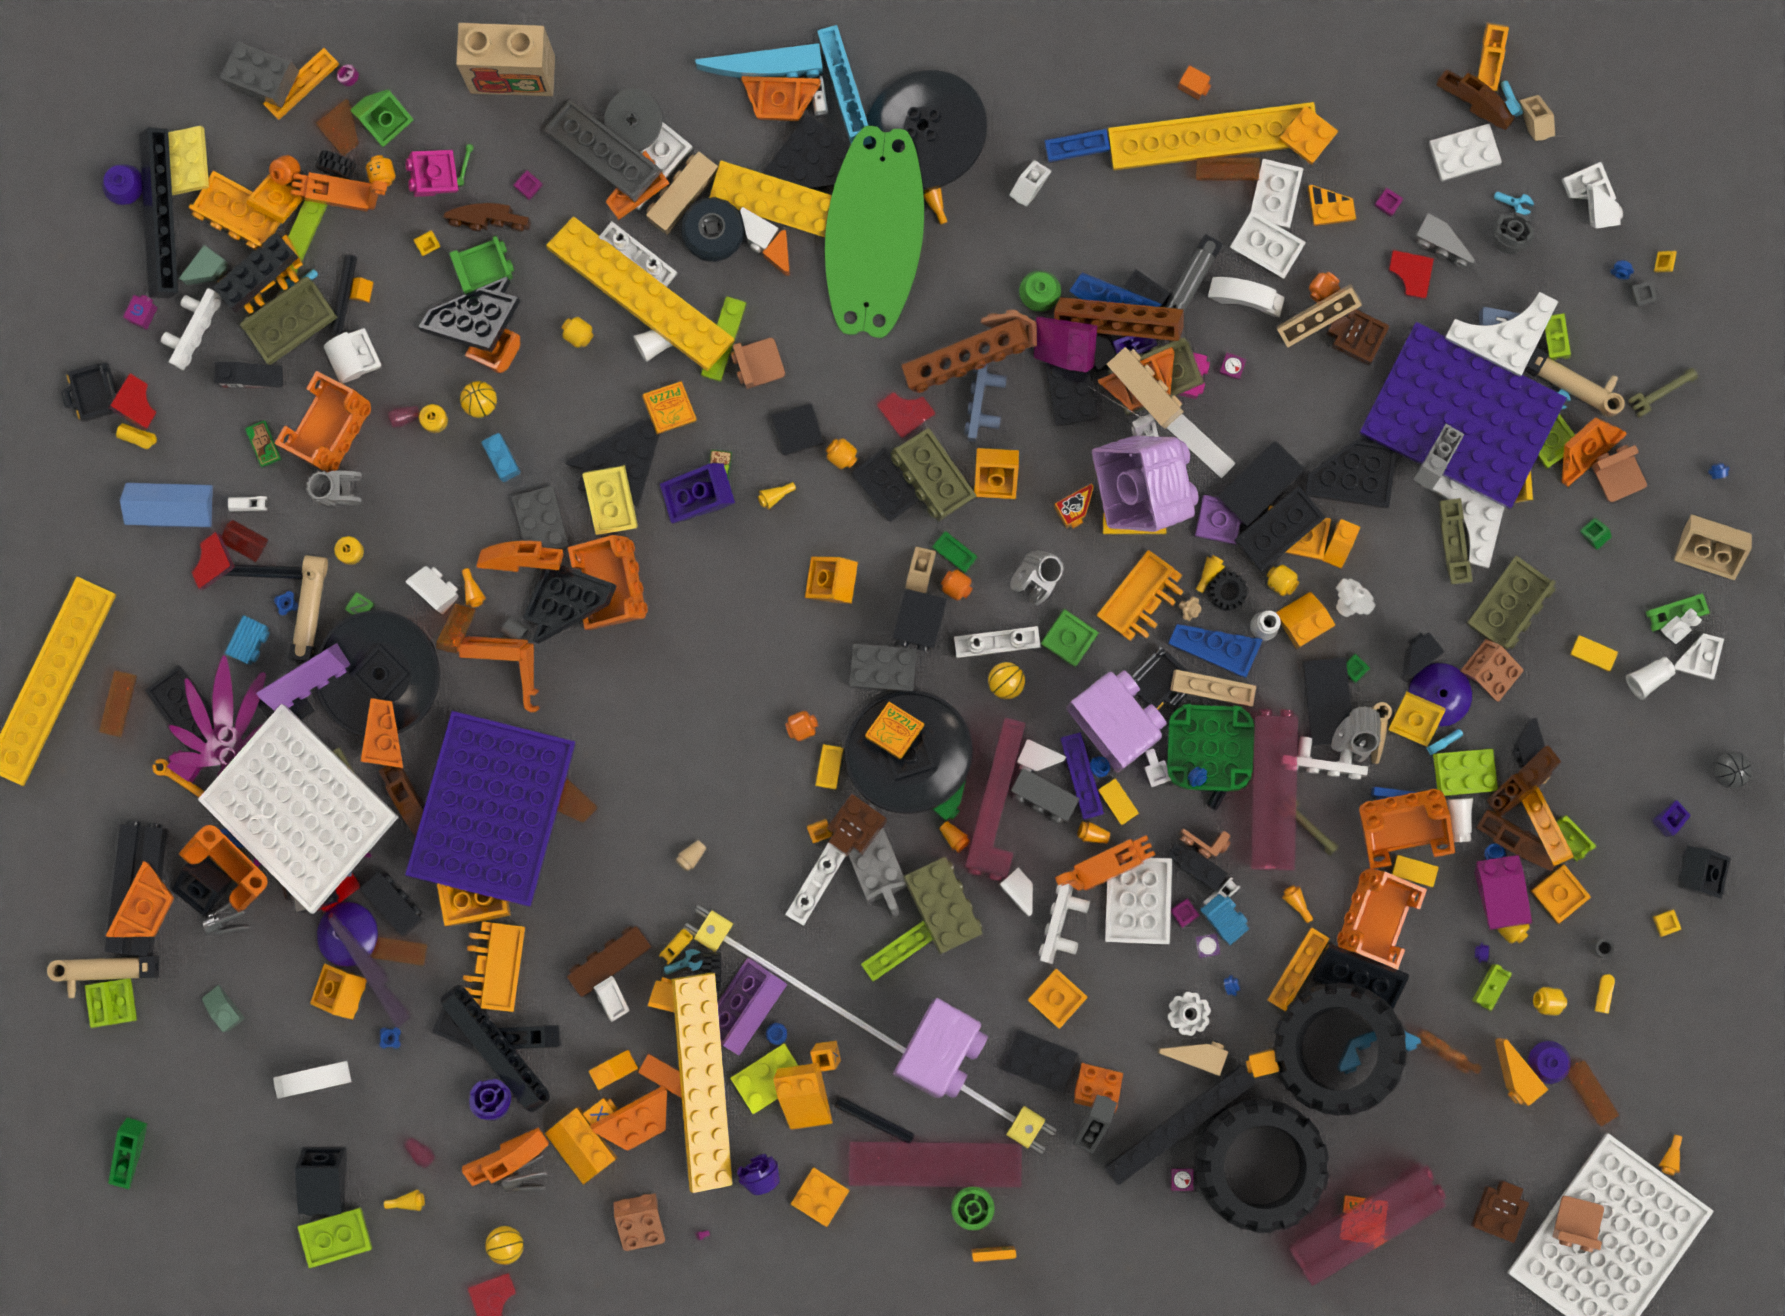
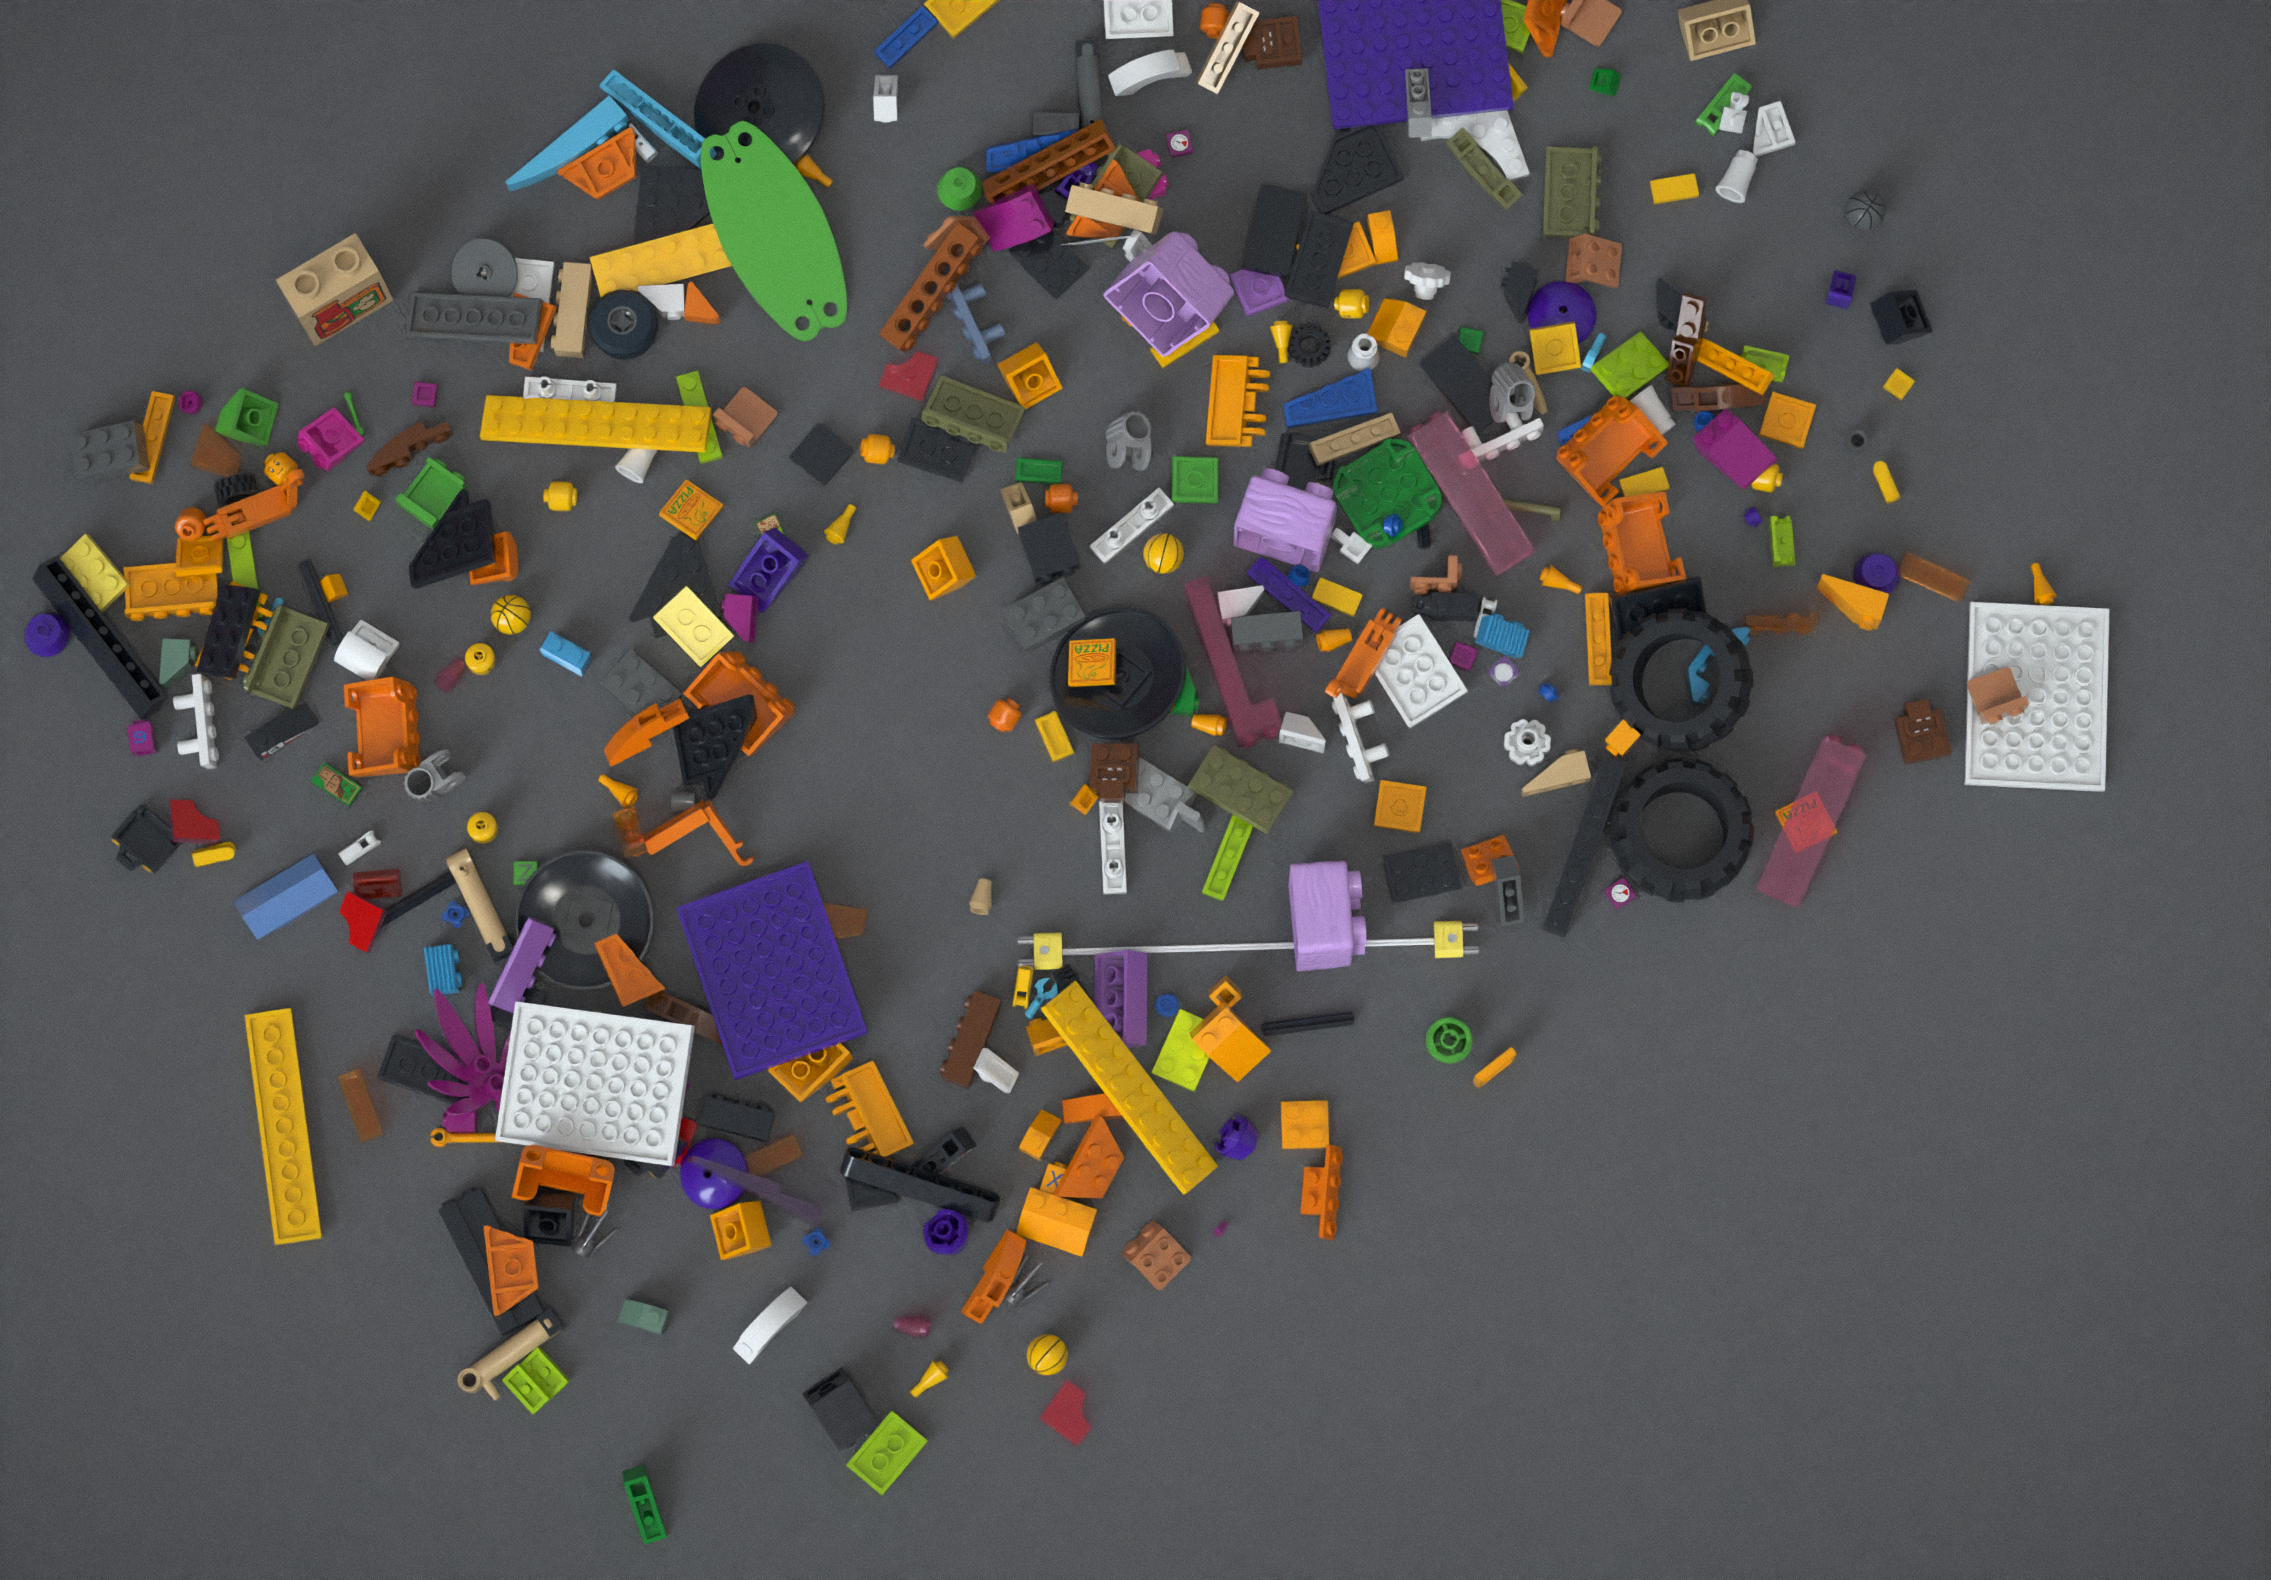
camera: 30 degrees left, 5 degrees down
(433, 589) = (584, 812): white slope -> none
(653, 515) = (742, 614): none -> magenta slope
(797, 1258) = (1321, 1191): none -> orange bracket
(935, 1164) = (1389, 1026): clear pink plate -> none
(1074, 507) = (1121, 360): slope -> none
(1190, 608) = (1286, 382): tan plant -> none
(1201, 445) = (1201, 232): white sticker -> none
(1549, 1001) = (1840, 519): yellow head -> none

